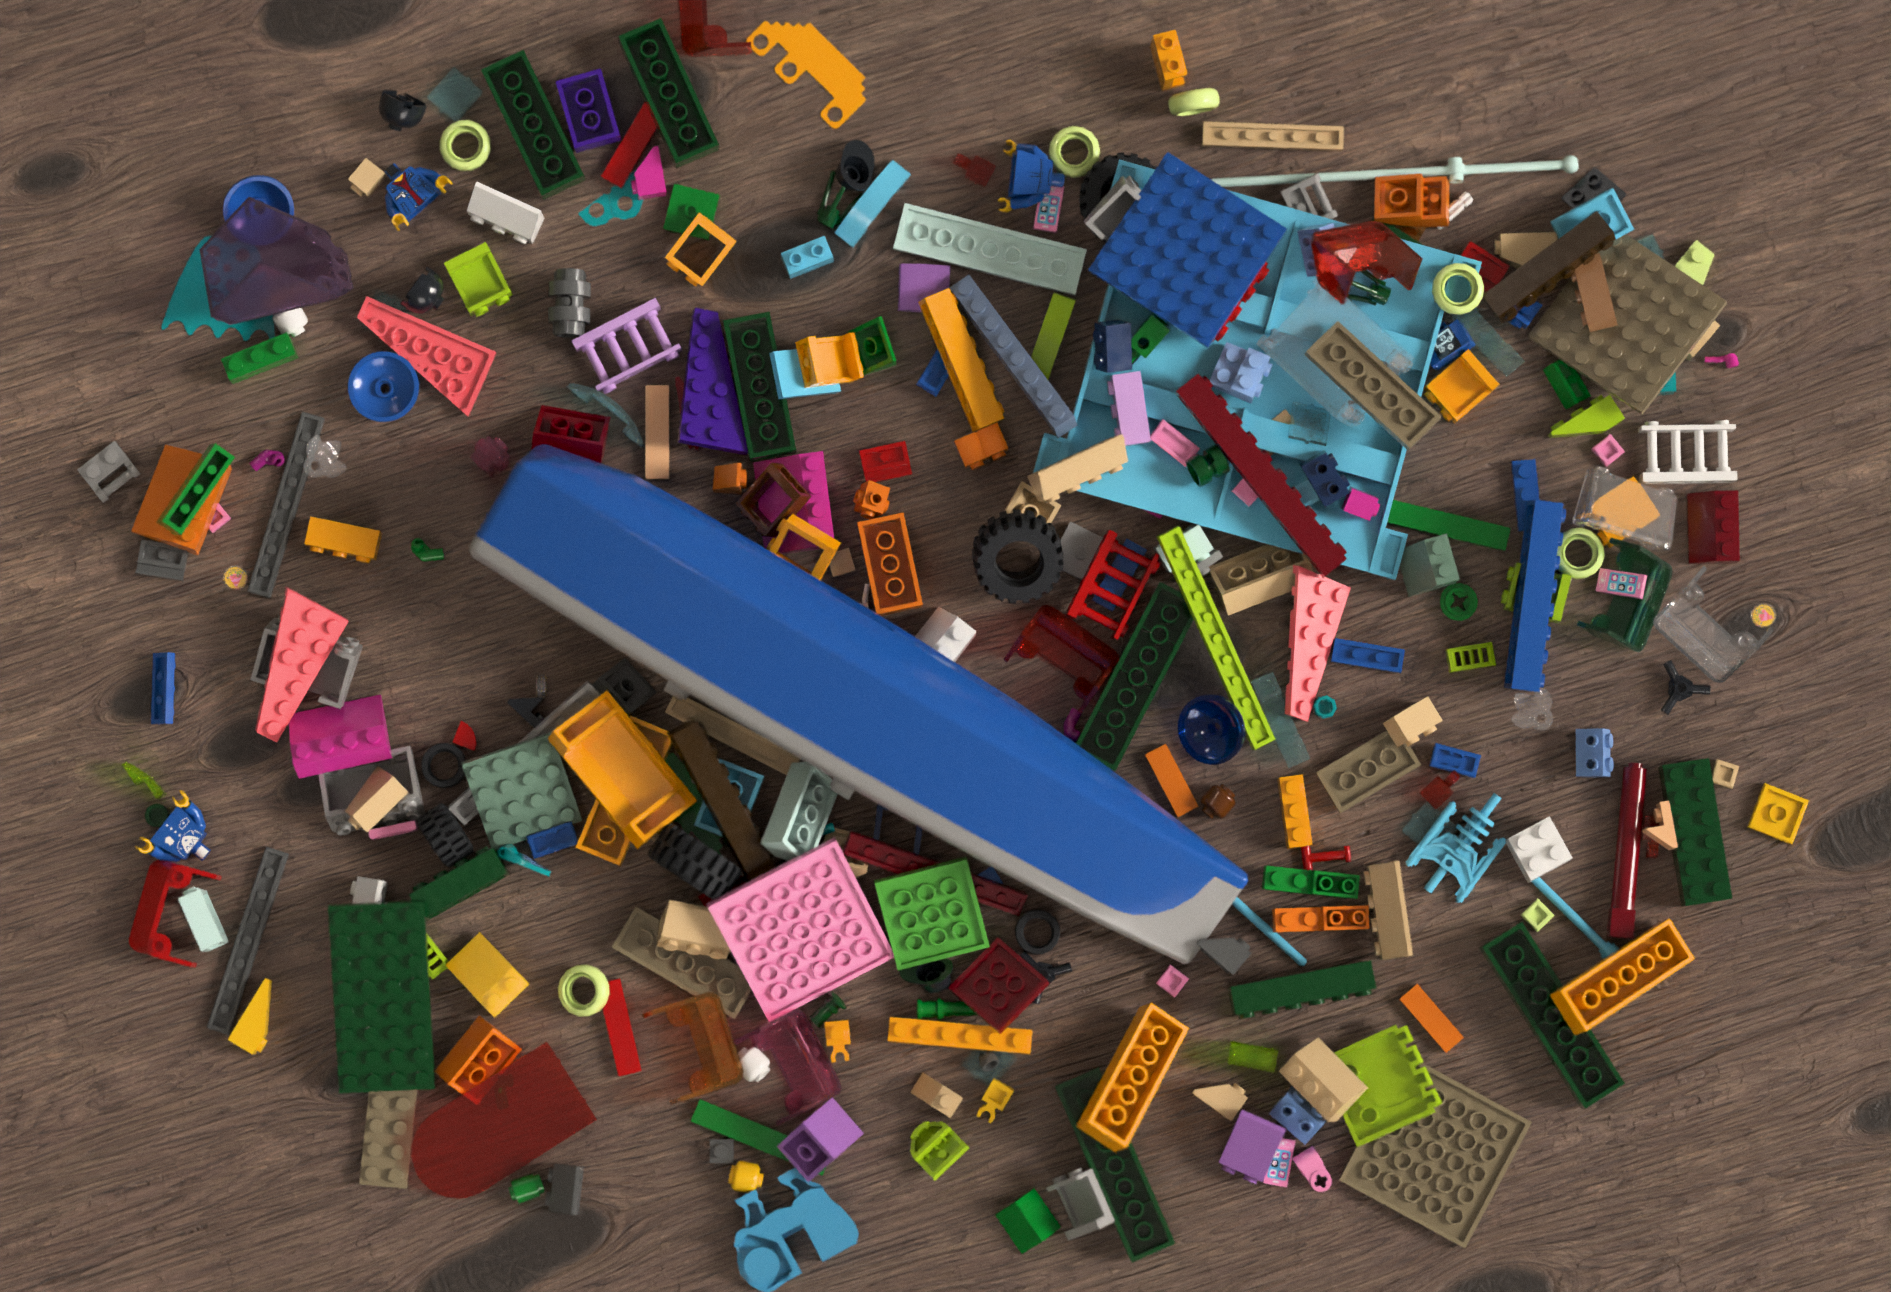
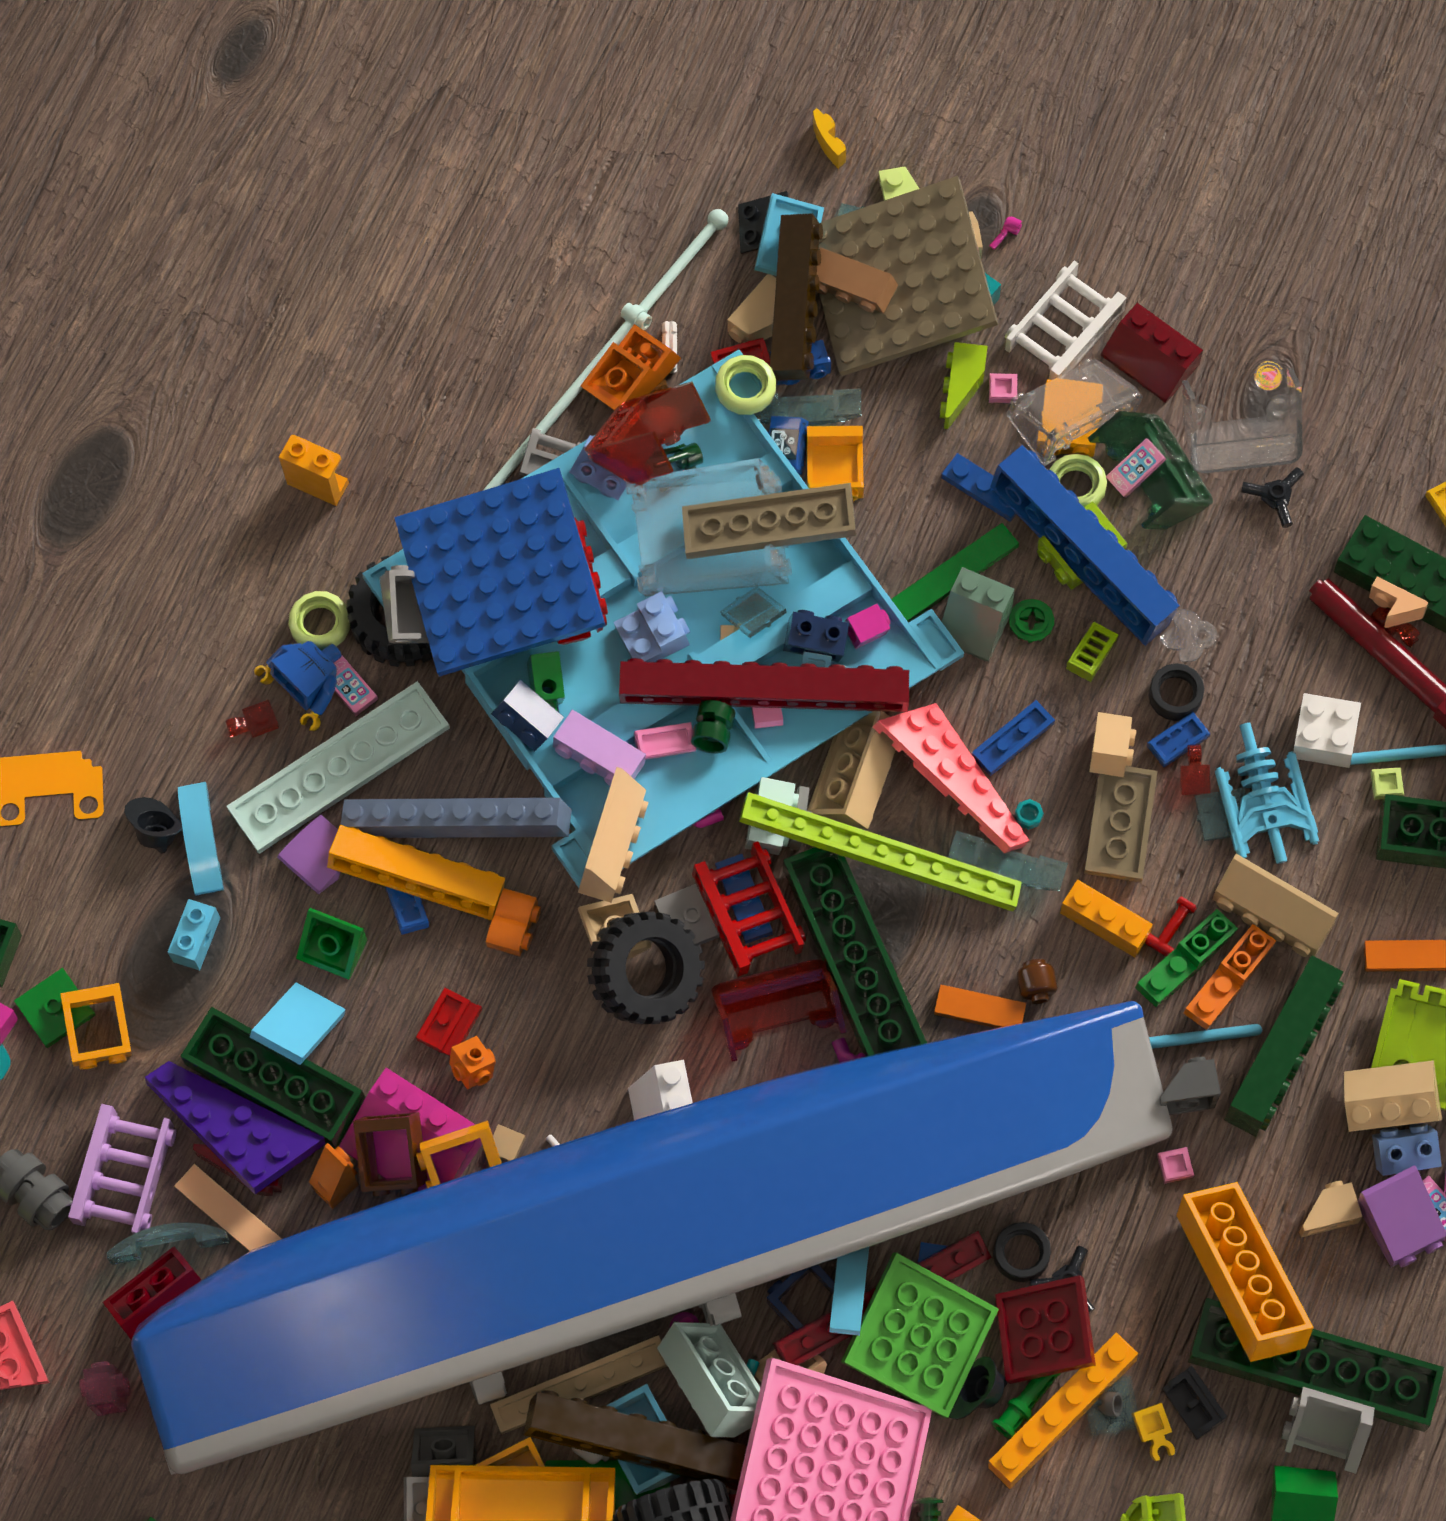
camera: 40 degrees left, 15 degrees down
(829, 216) = (175, 884): dark green plant -> none
(829, 360) = (307, 991): light orange panel -> none
(890, 564) = (547, 1094): orange brick -> none
(915, 854) = (849, 1292): none -> medium azure slope
(936, 1095) = (1104, 1482): tan slope -> none
(1031, 1110) = (1194, 1403): none -> black hinge
(1052, 332) = (462, 766): lime slope -> none
(1193, 101) = (370, 479): yellowish green wheel -> none
(1199, 732) = (957, 947): clear blue dish -> none
(1252, 1056) = (1313, 1148): clear neon green brick -> none
(1272, 136) = (463, 443): tan plate -> none
(1504, 733) = (1176, 671): none -> black tyre
(1566, 383) = (911, 375): green slope -> none
(1593, 753) = (1274, 612): medium blue brick -> none
(1694, 181) = (825, 133): none -> yellow slope
(1724, 773) = (1390, 516): tan tile -> none

